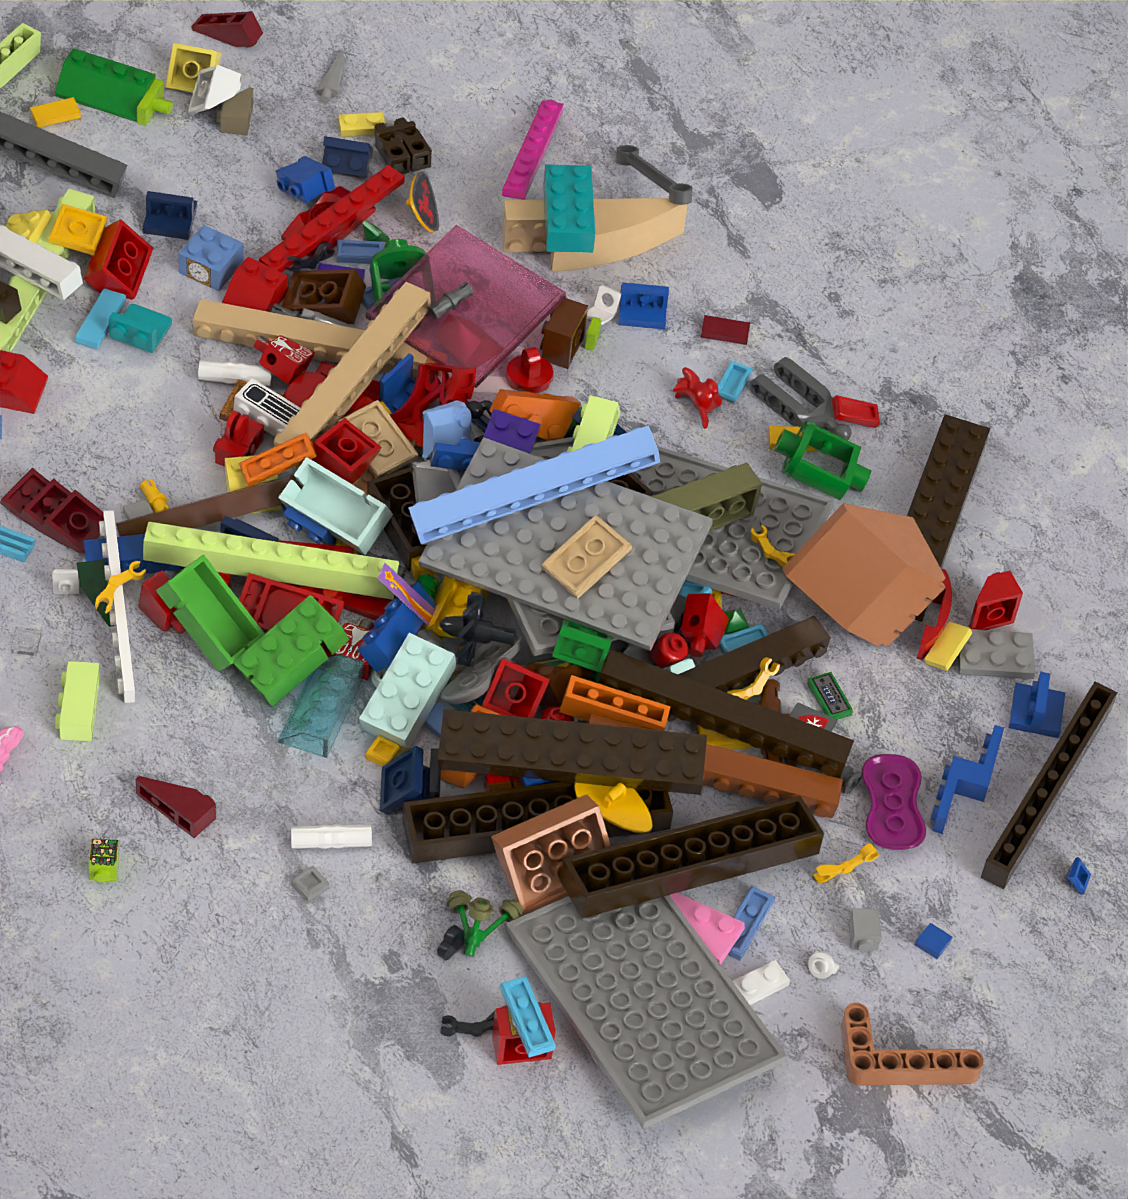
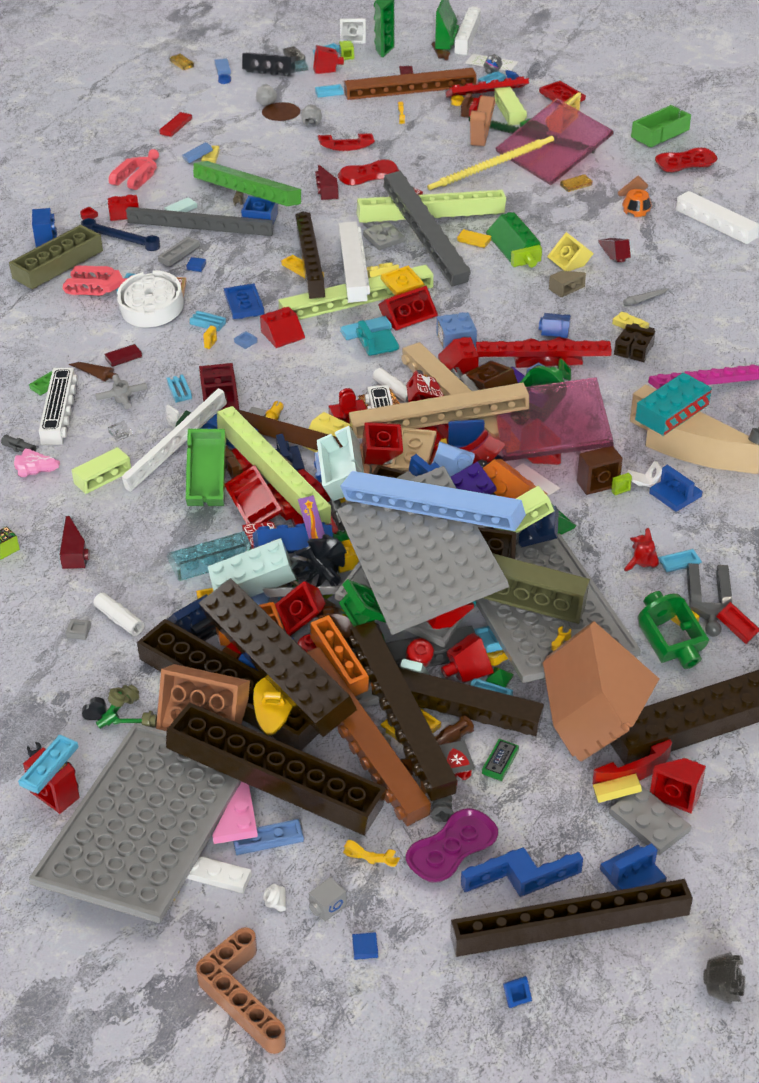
camera: 55 degrees right, 10 degrees down
(114, 582) = (179, 422): yellow piece -> none
(169, 215) = (465, 302): dark blue bracket -> none
(213, 87) = (562, 260): white slope -> none
(277, 459) = (338, 421): orange tile -> none
(291, 650) = (213, 512): bright green piece -> none
(320, 254) = (507, 362): black piece -> none
(347, 156) = (595, 327): dark blue bracket -> none
(423, 202) = (609, 369): shield -> none
(450, 300) = (541, 409): dark grey pin -> none
(529, 371) = (557, 479): red tile -> none
(586, 556) = (413, 556): tan tile -> none
(725, 329) = (713, 533): dark red tile -> none
(757, 687) = (453, 715): yellow piece -> none

